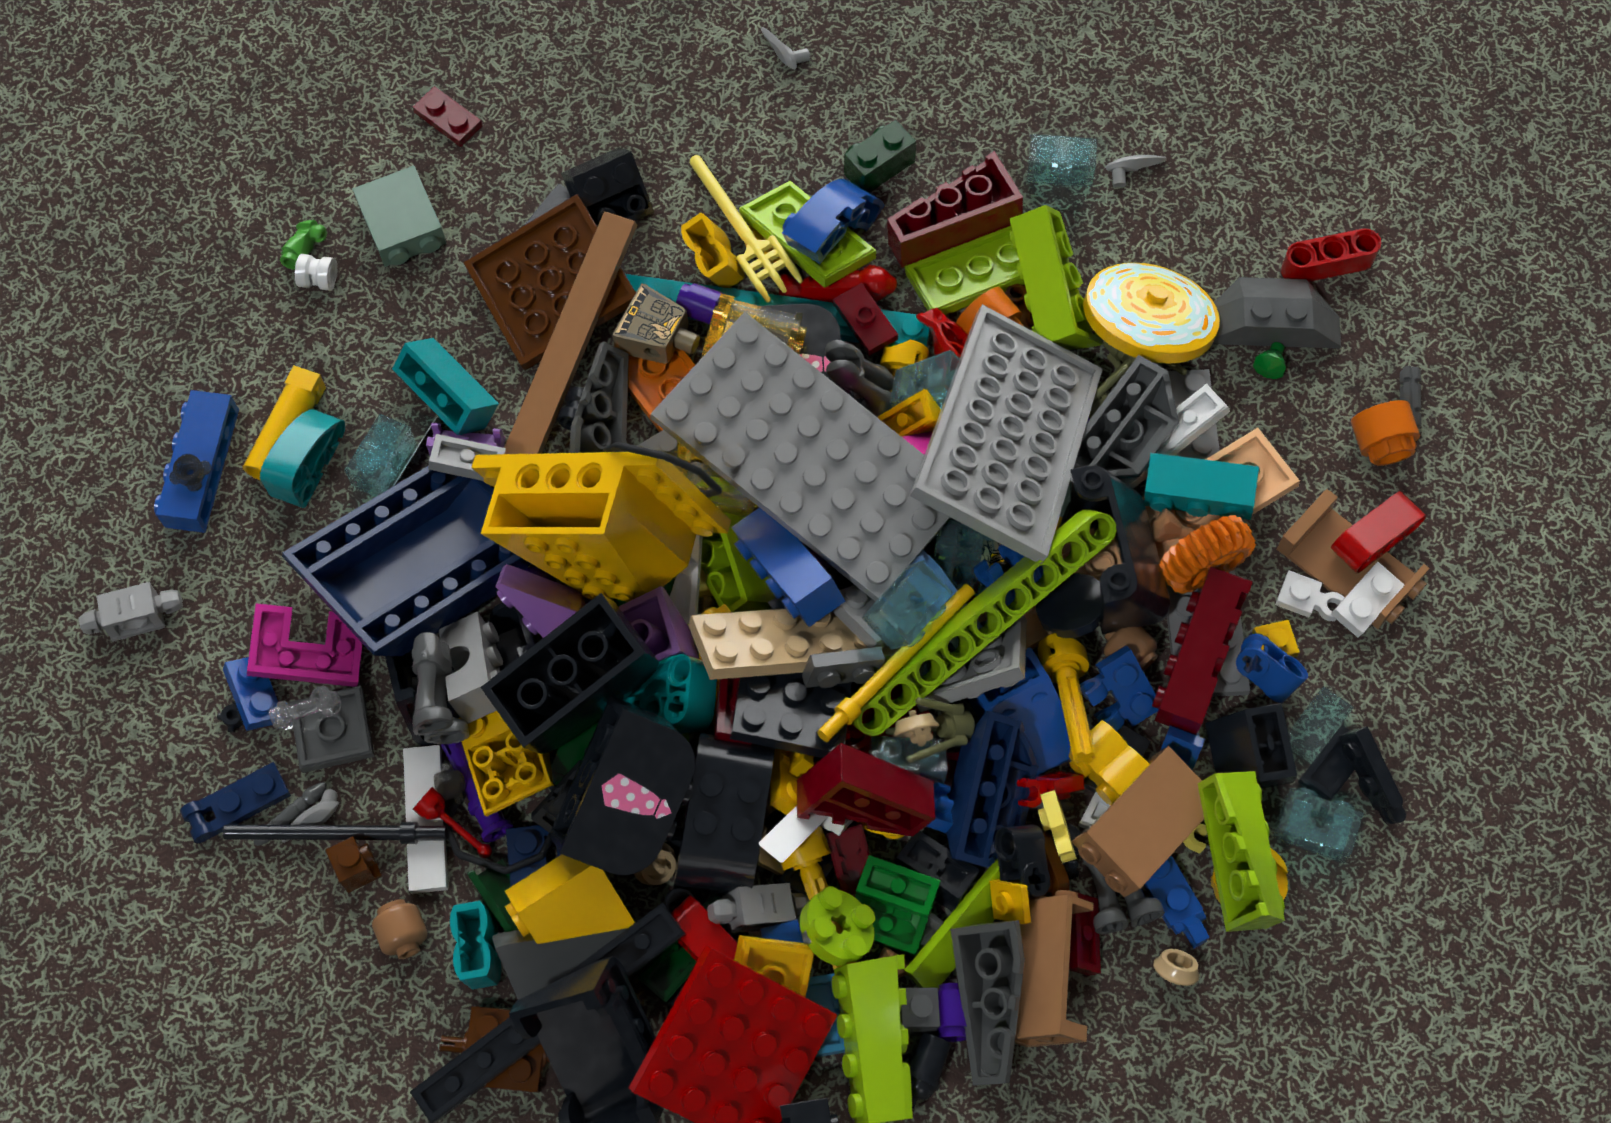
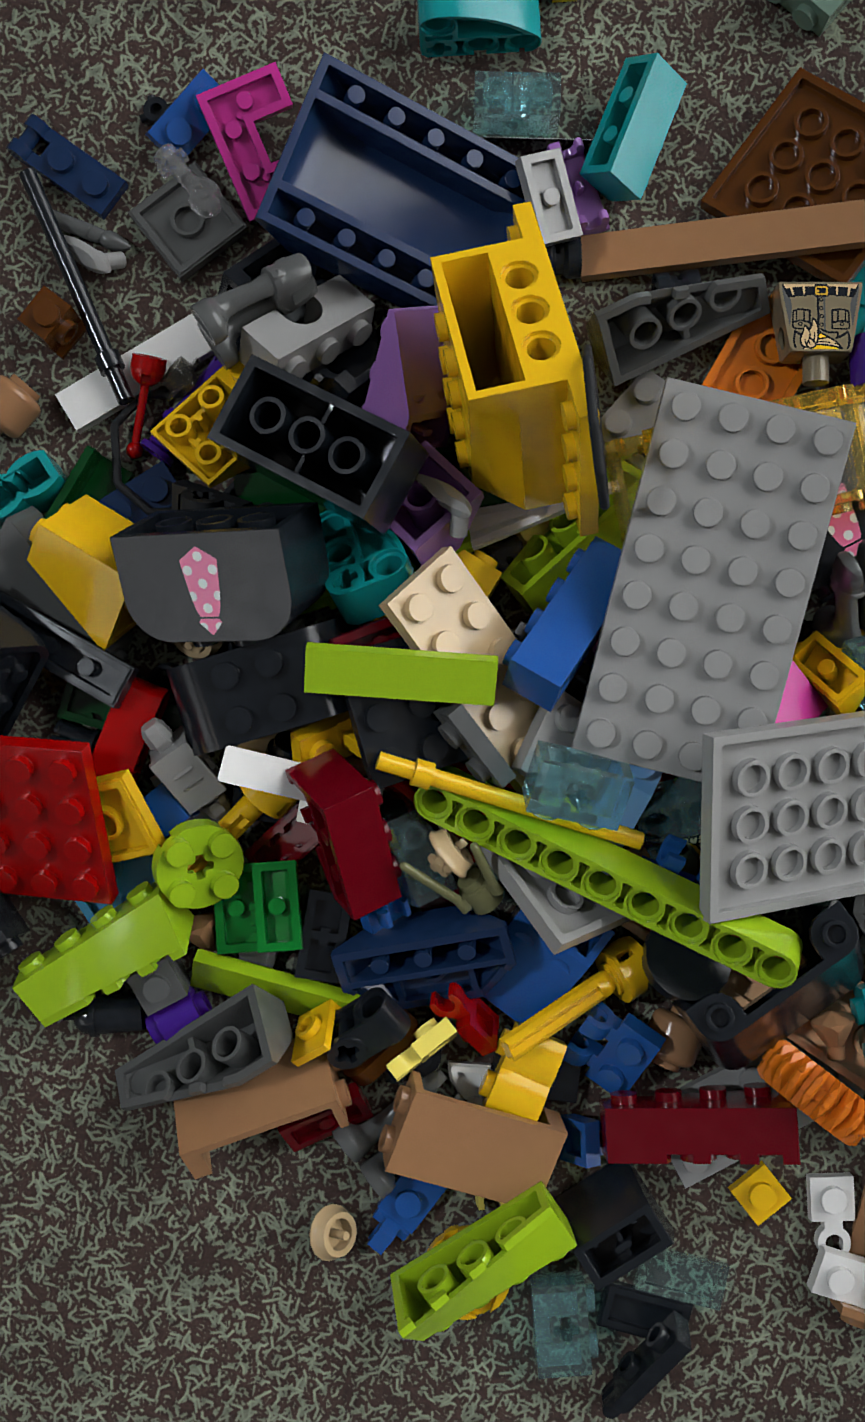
camera: 60 degrees right, 20 degrees up
(656, 607) = (452, 500): none -> light grey bar
(767, 687) = (400, 674): none -> lime tile
(1270, 668) = (721, 1204): blue piece -> none

